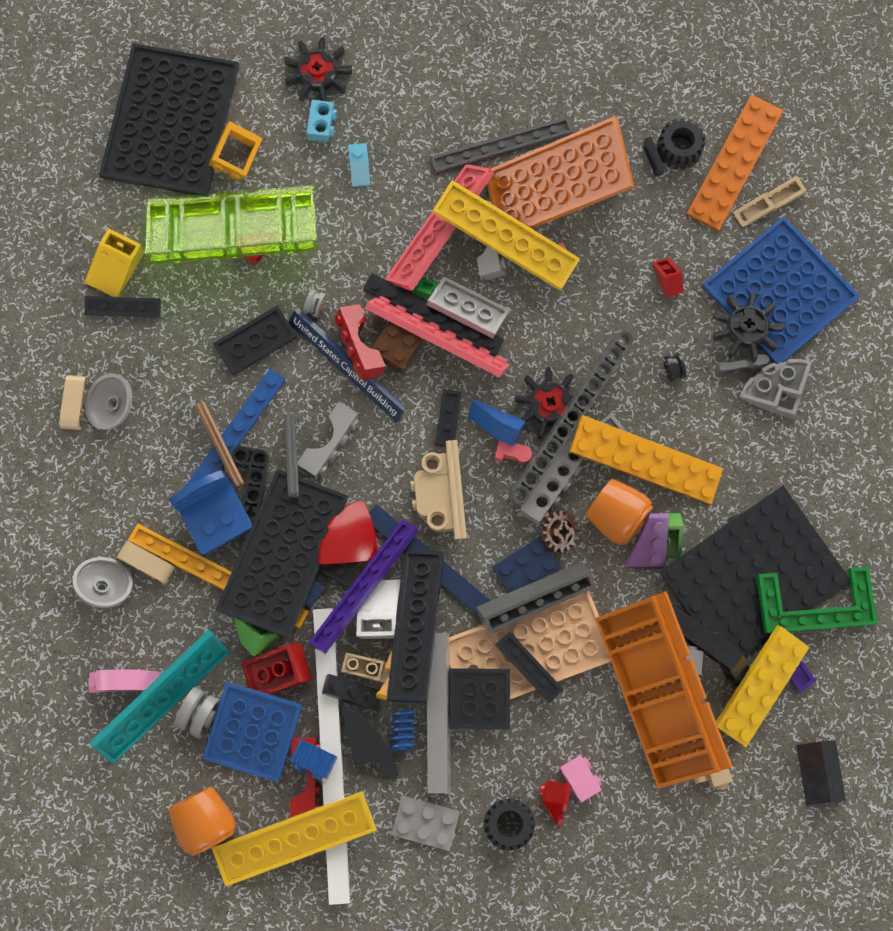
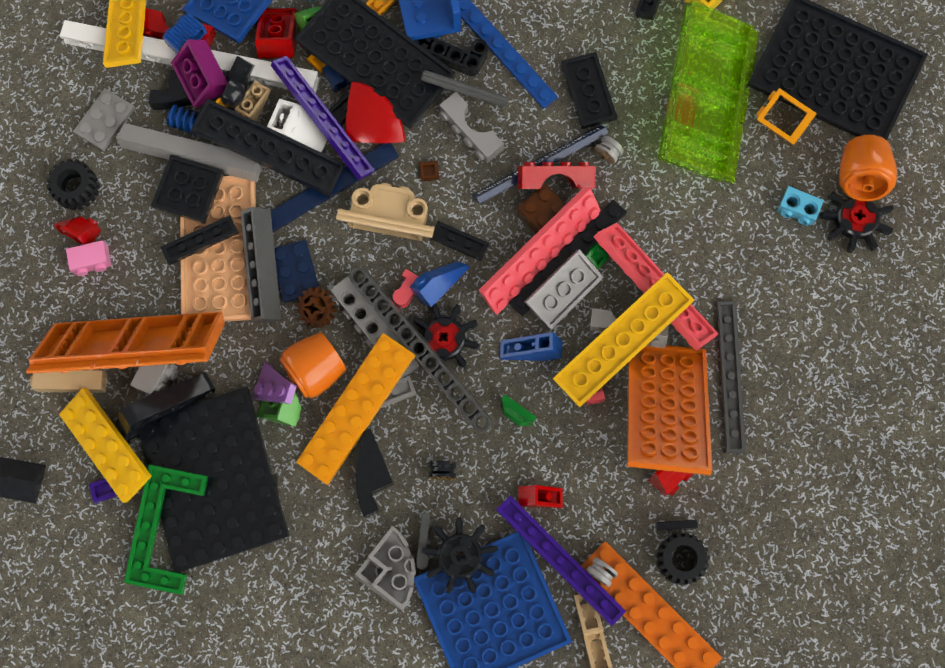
camera: 115 degrees right, 0 degrees up
(219, 444) = (496, 32): medium nougat axle -> none
(272, 66) = (867, 168): none -> orange piece
(353, 728) = (199, 72): none -> magenta slope
(359, 165) = (743, 229): medium azure slope -> none
(368, 680) = (234, 93): none -> black hair
(383, 470) = (429, 171): none -> reddish brown tile
(533, 322) = (532, 348): none -> blue slope
(599, 318) = (516, 412): none -> green slope
(700, 430) = (370, 474): none -> black slope
(718, 203) = (597, 571): none -> light grey wheel
(719, 243) = (561, 561): none -> dark purple plate

